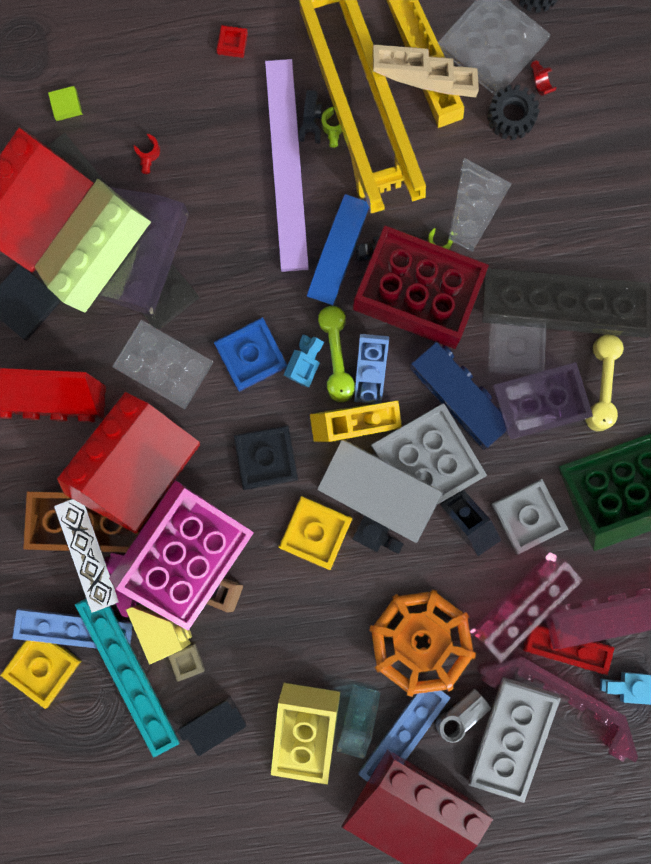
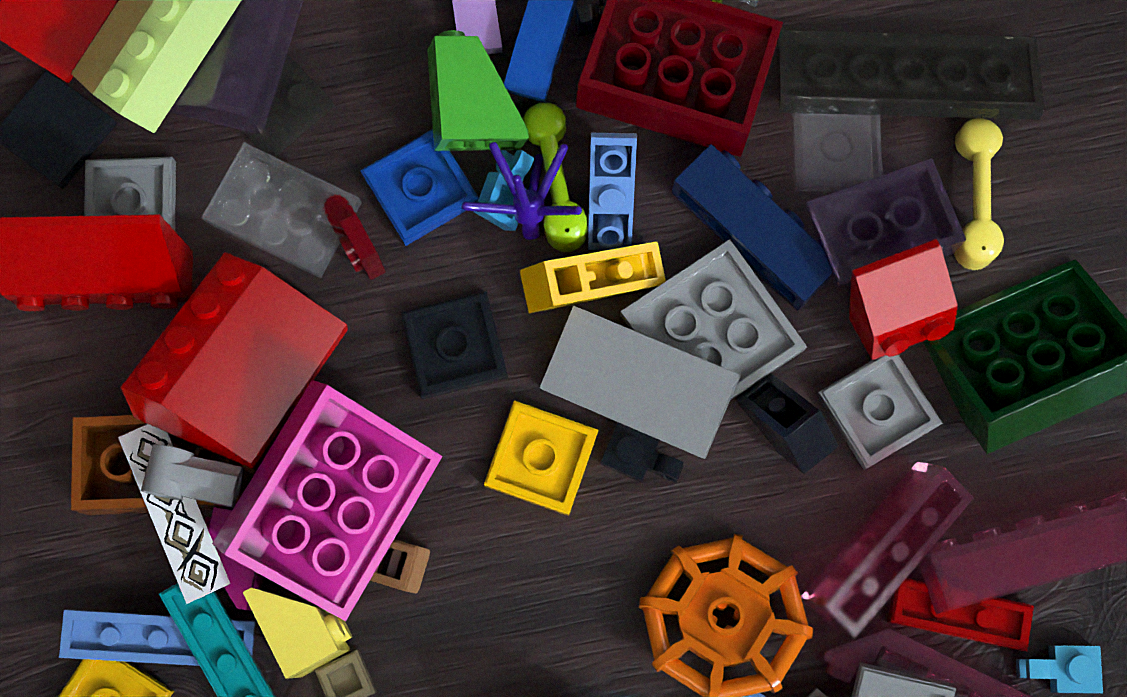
camera: 10 degrees left, 5 degrees down
(68, 348) = (131, 187): none -> light grey tile
(91, 534) = (179, 474): none -> light grey piece
(208, 392) = (354, 237): none -> dark red hinge
(285, 300) = (470, 98): none -> bright green slope
(317, 372) = (527, 204): none -> dark purple plant
(549, 452) = (902, 300): none -> slope

